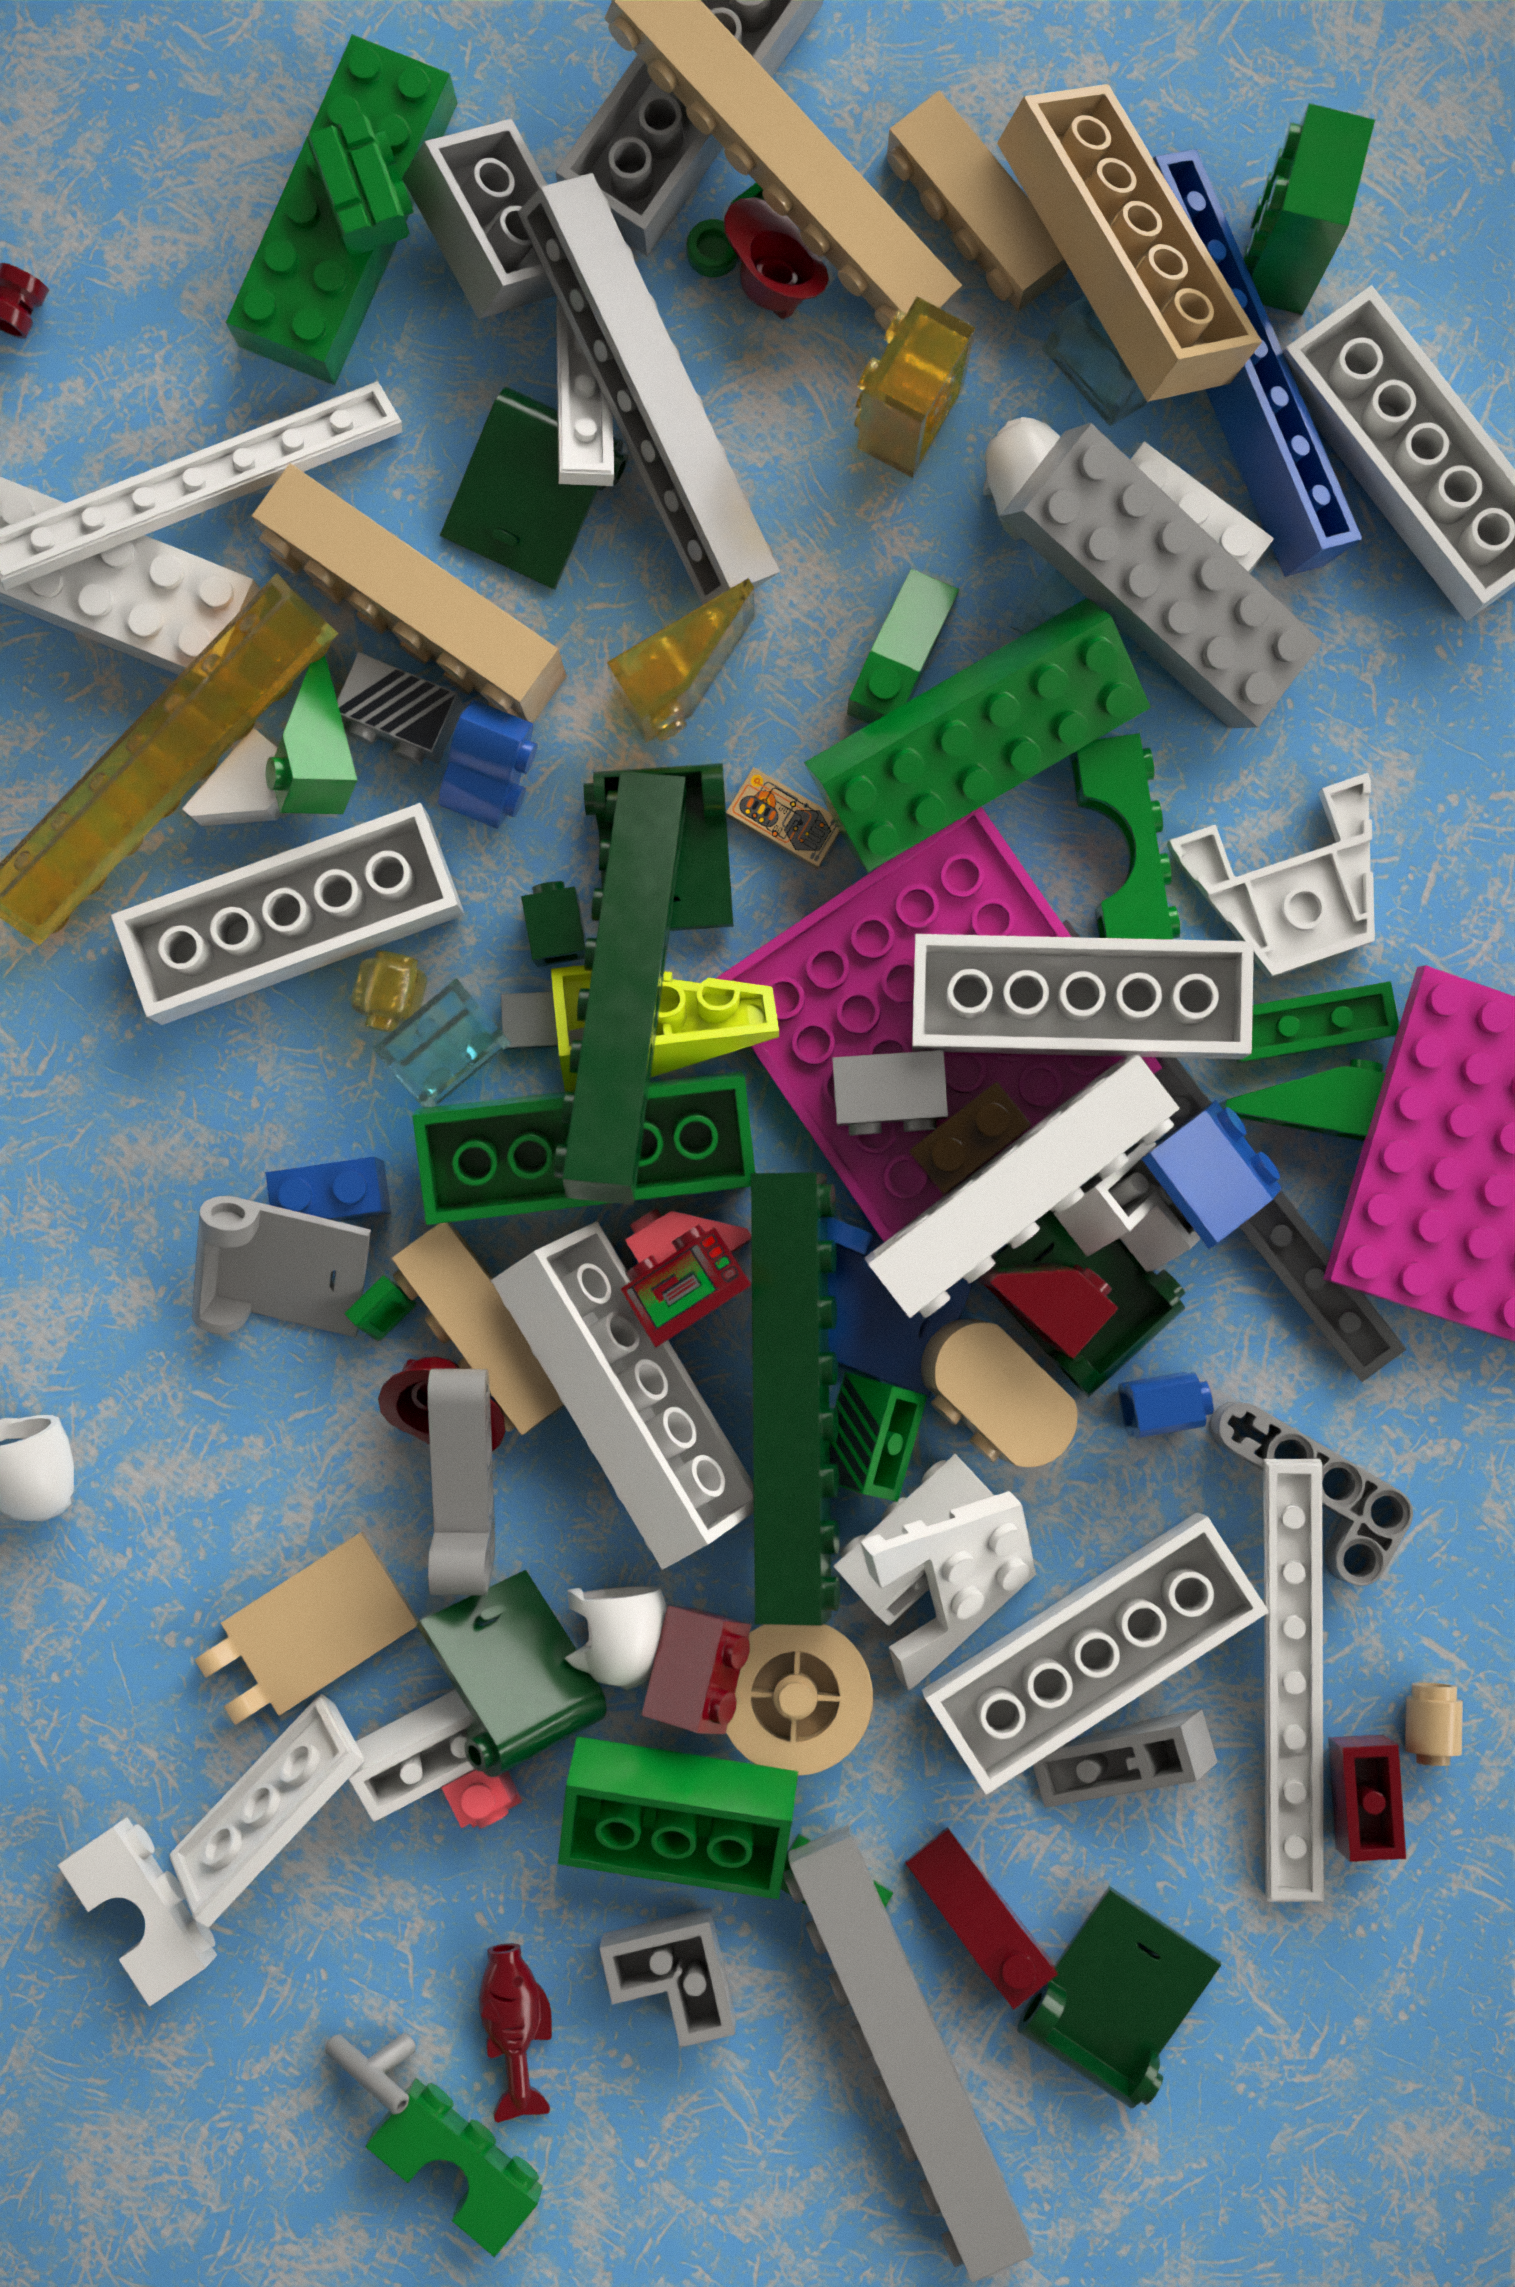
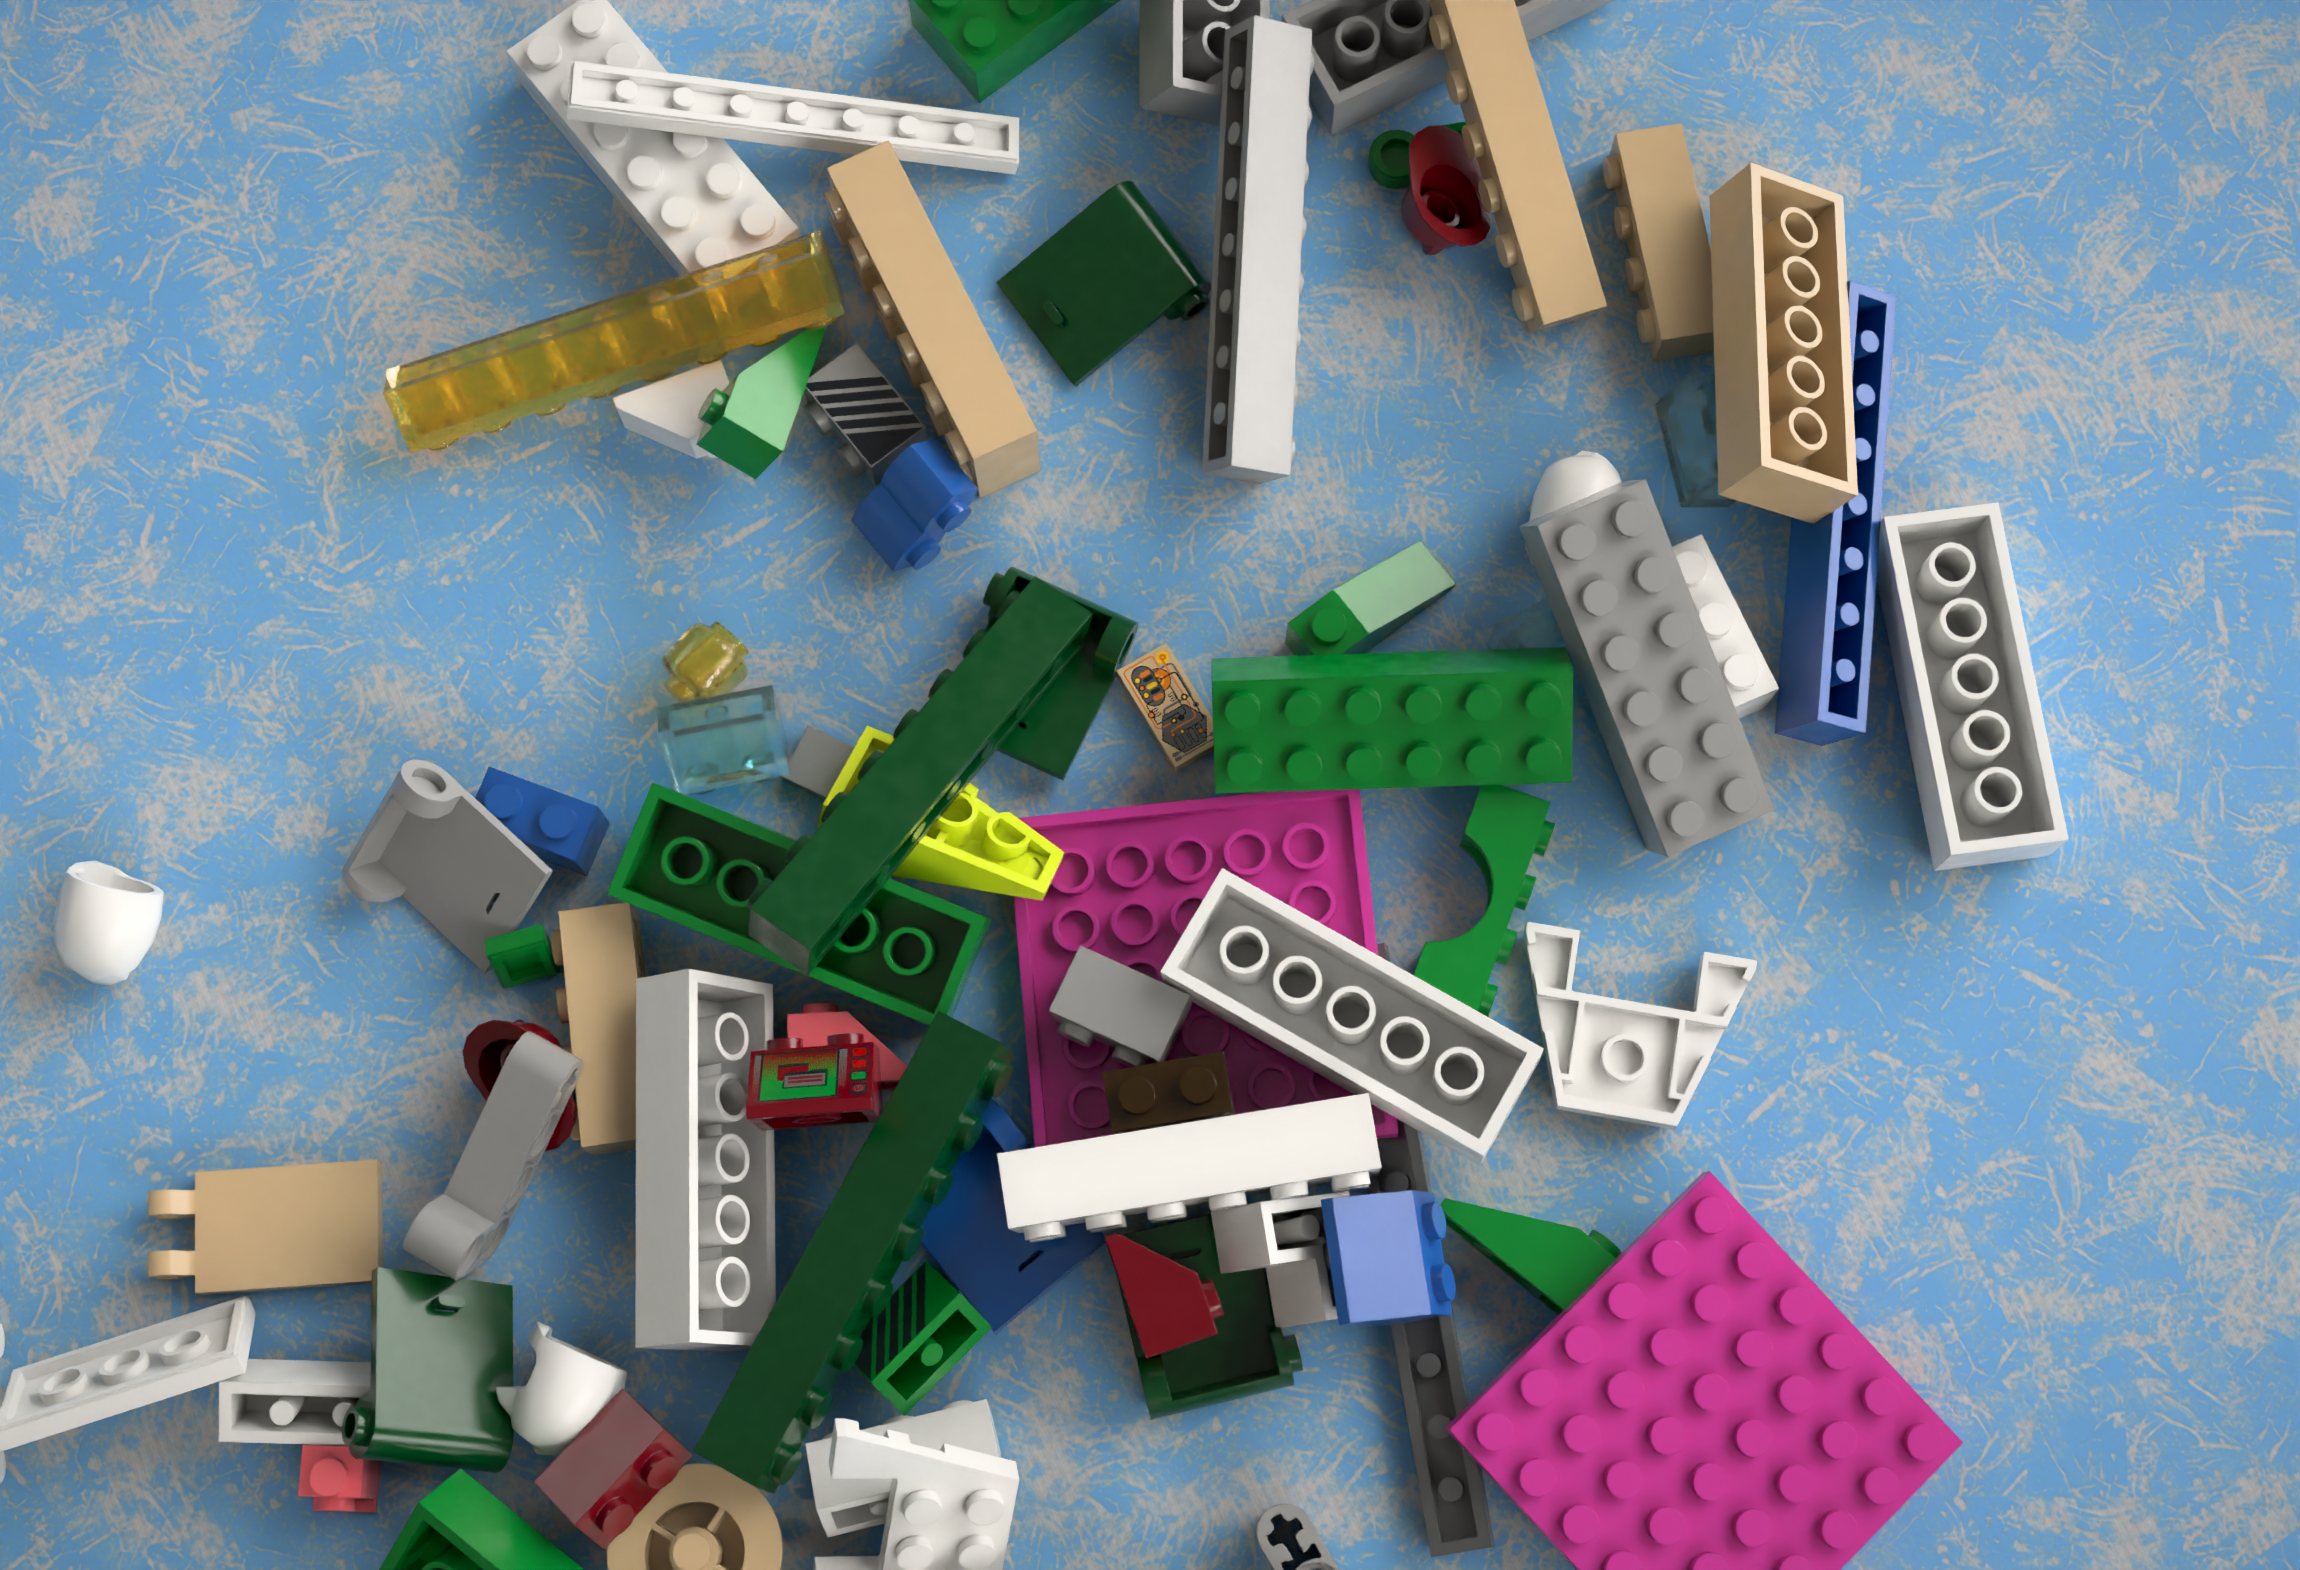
camera: 25 degrees right, 10 degrees down
(287, 915) = (653, 545): white brick -> none
(554, 924) = (893, 684): dark green brick -> none
(582, 415) = (1183, 243): white tile -> none
(674, 668) = (1149, 508): clear yellow slope -> none
(912, 385) = (1506, 369): clear yellow brick -> none
(998, 1394) = (1061, 1365): tan brick -> none
(1164, 1404) = (1219, 1464): blue brick -> none
(1306, 205) = (1964, 394): green brick -> none
(1323, 1021) = (1576, 1174): green plate -> none

